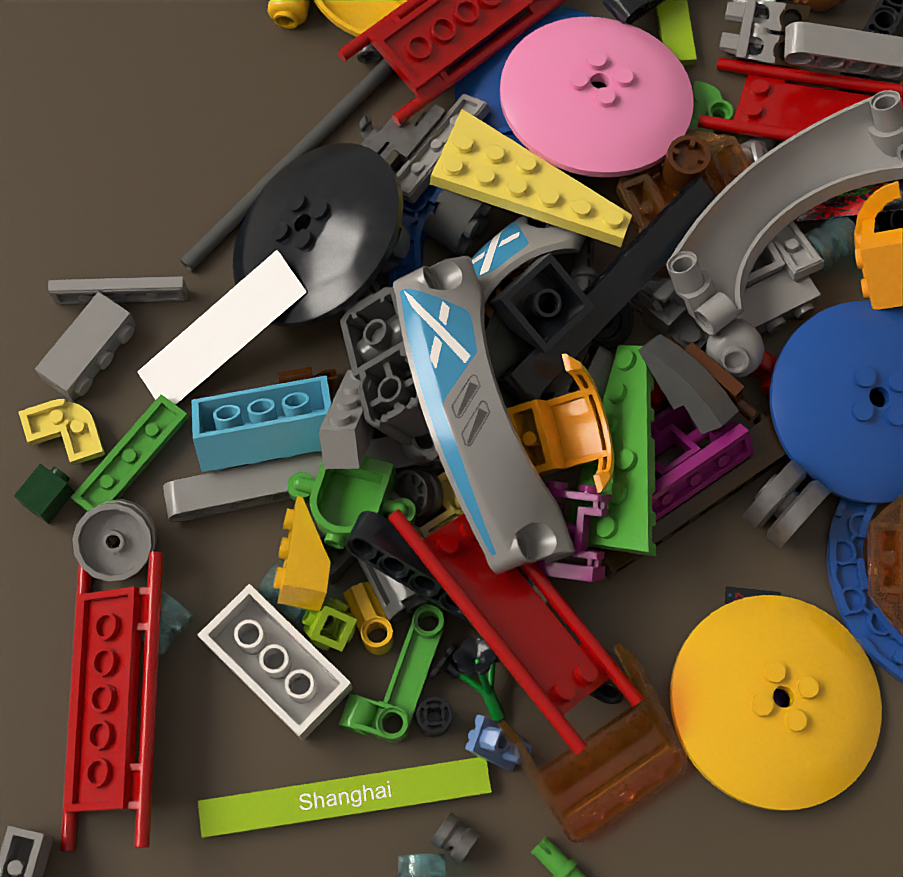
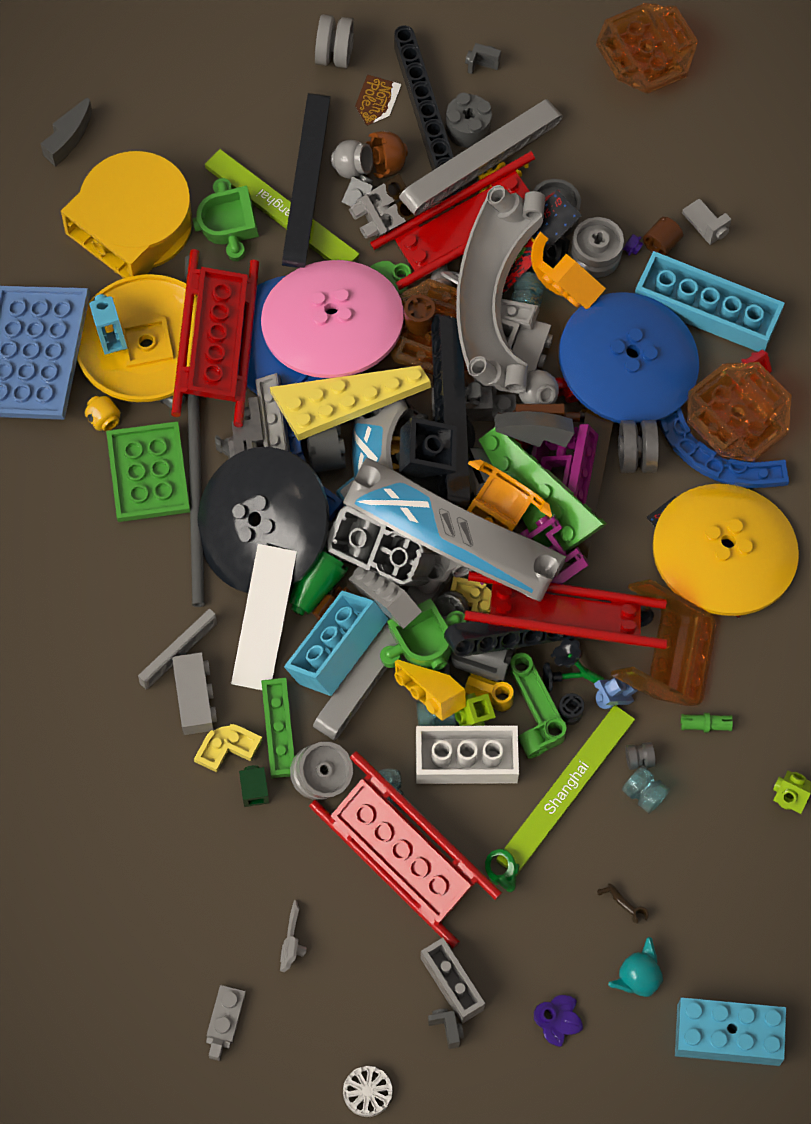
camera: 45 degrees left, 5 degrees down
(182, 836) = (508, 879): none -> green piece
(272, 95) = (148, 471): none -> bright green plate
(308, 346) = (316, 584): none -> green cone

